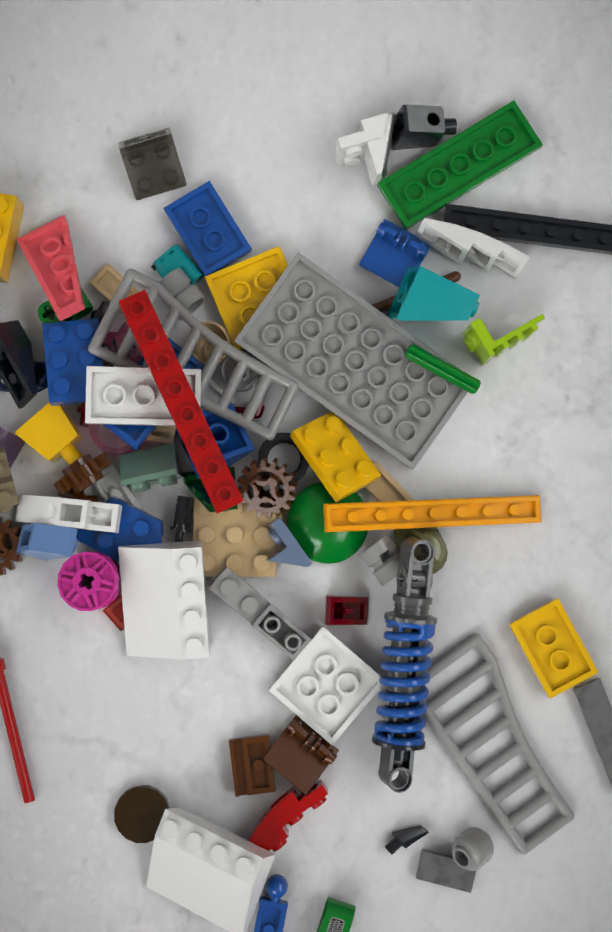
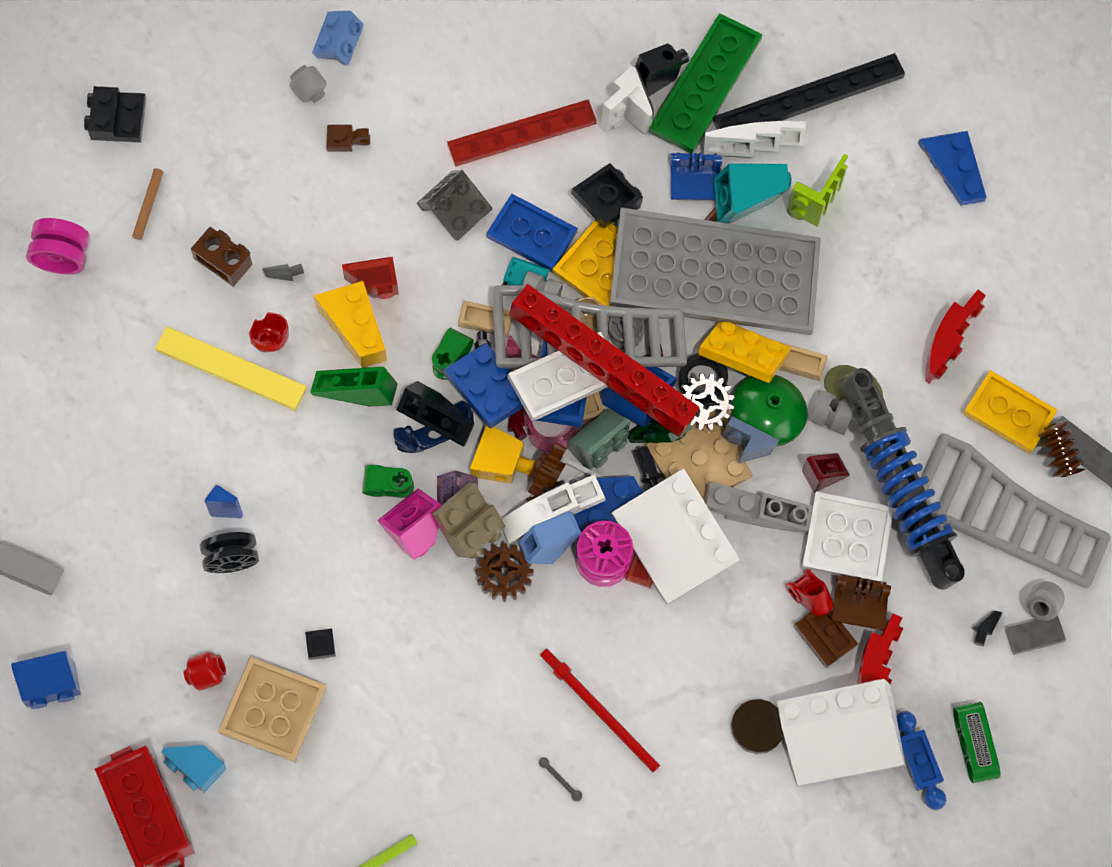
camera: 30 degrees left, 15 degrees down
(38, 197) = (377, 275): none -> clear red slope
(54, 264) = (421, 319): coral wing -> none
(88, 40) = (342, 138): none -> reddish brown plate
(256, 123) = (521, 132): none -> clear red tile
(259, 718) = (811, 593): none -> red piece
(297, 229) = (606, 194): none -> black plate
(431, 513) = (849, 355): light orange tile -> none
(442, 369) = (789, 239): green axle -> none
(533, 549) = (949, 335): none -> red slope
(577, 715) = (1061, 449): none -> reddish brown piece

